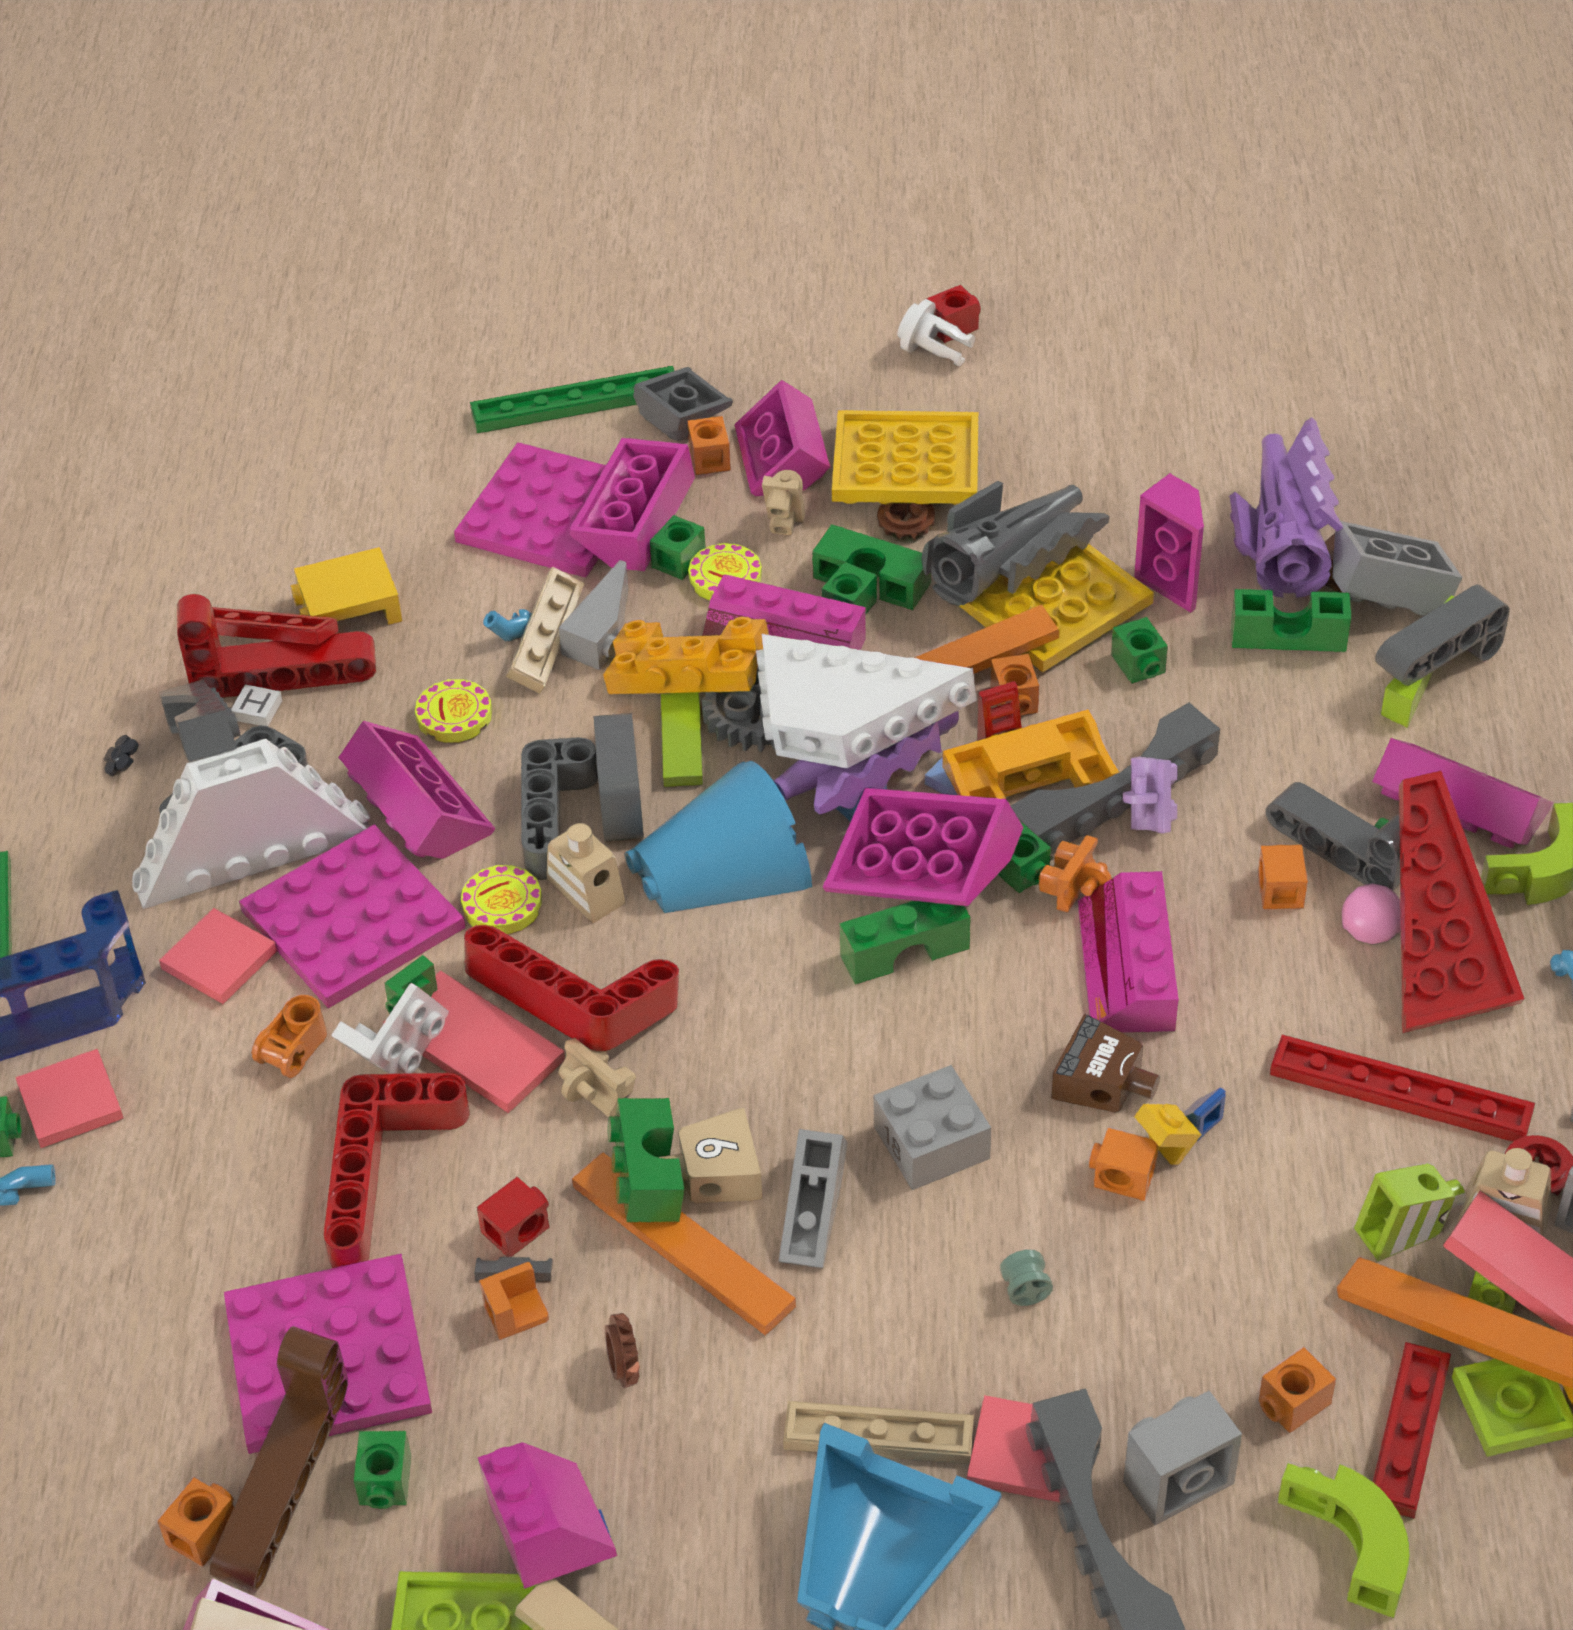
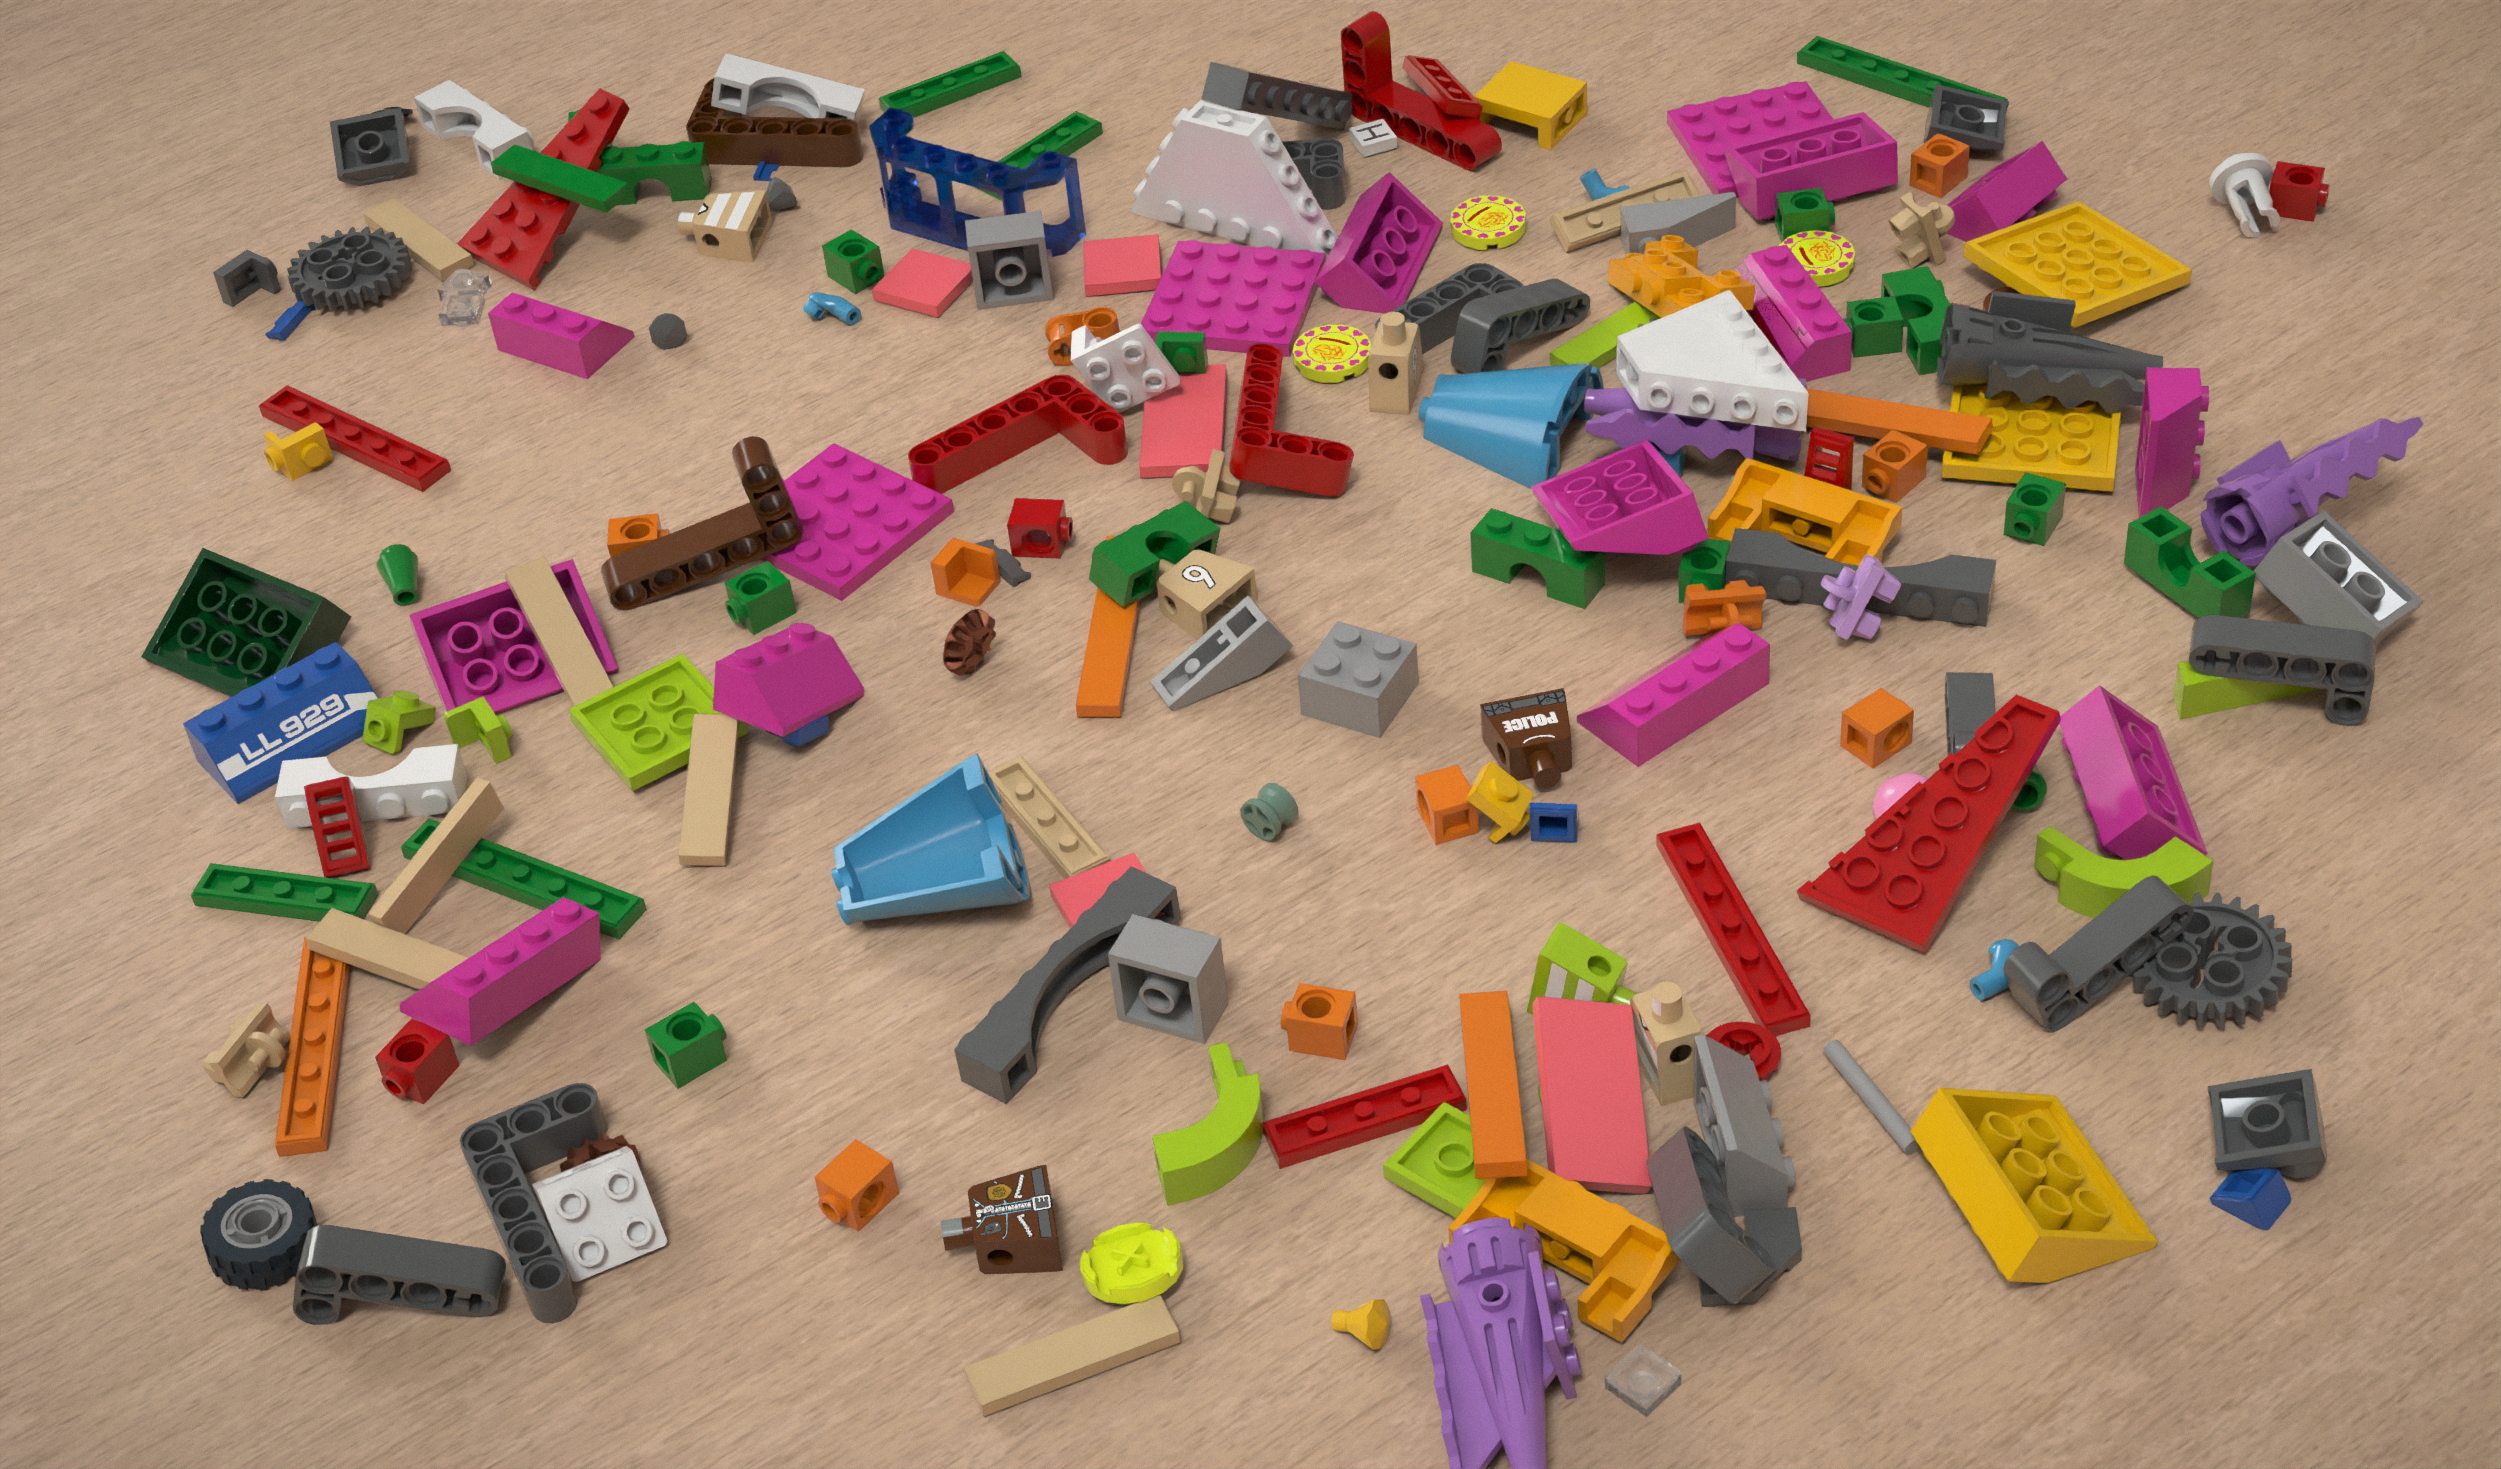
camera: 55 degrees right, 5 degrees down
(144, 1020) = (1009, 260): none -> light grey brick

